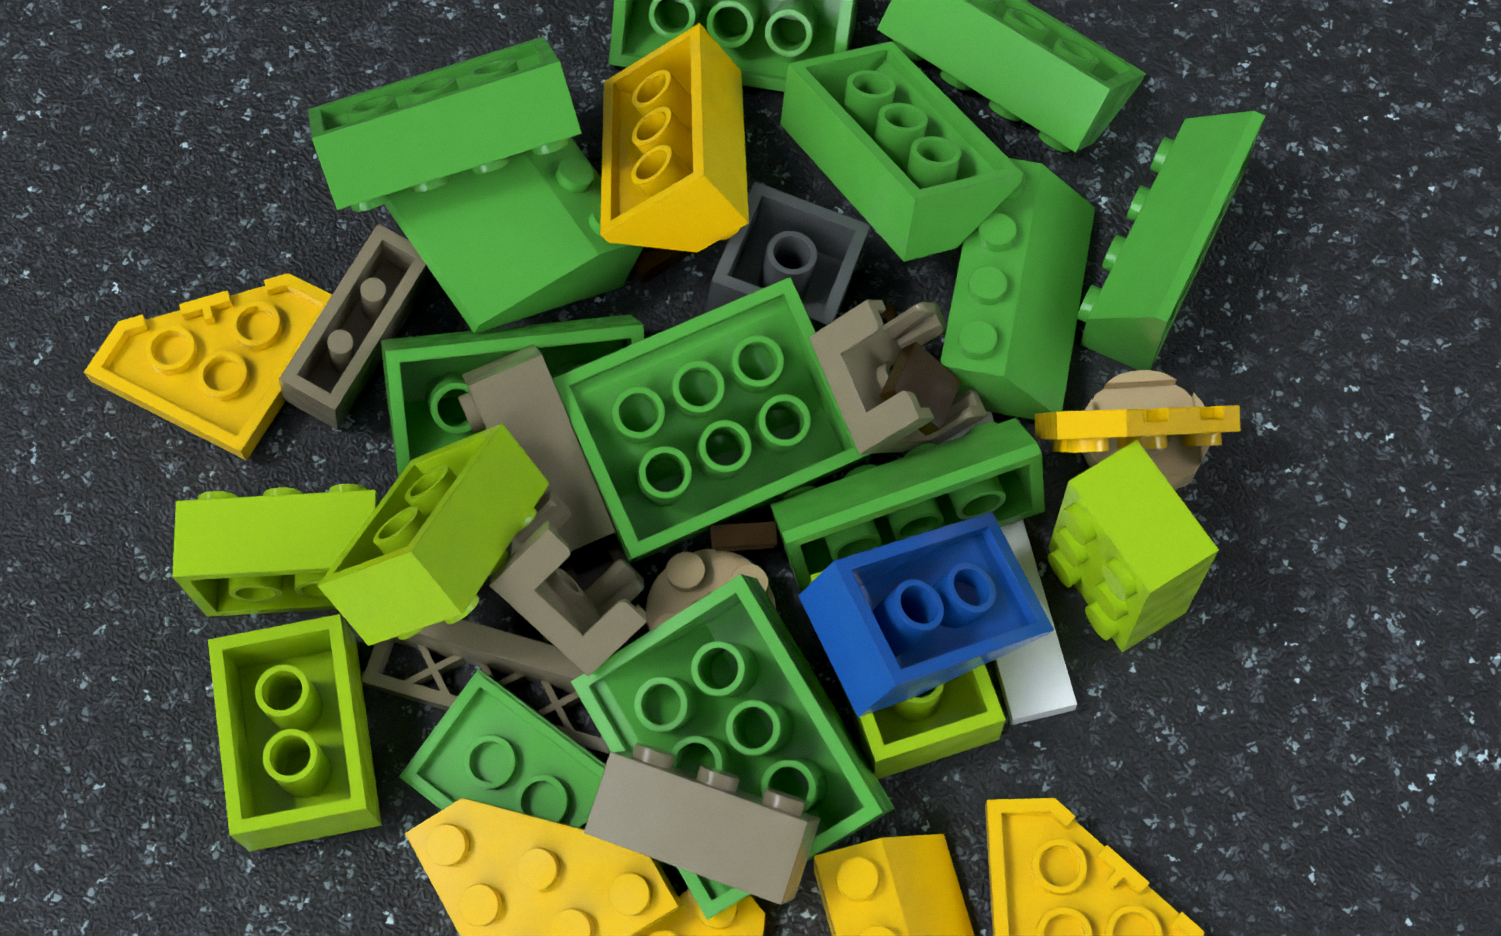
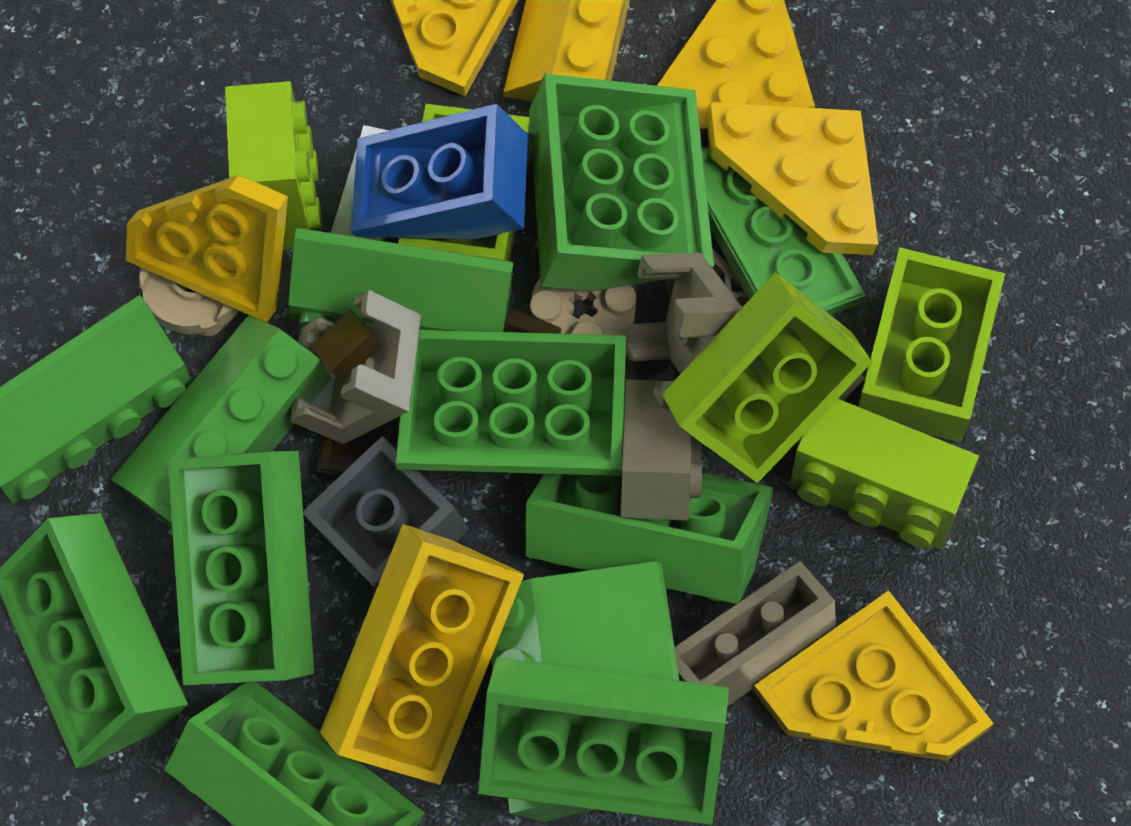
camera: 155 degrees left, 0 degrees up
(703, 823) = (670, 119): dark tan brick -> none

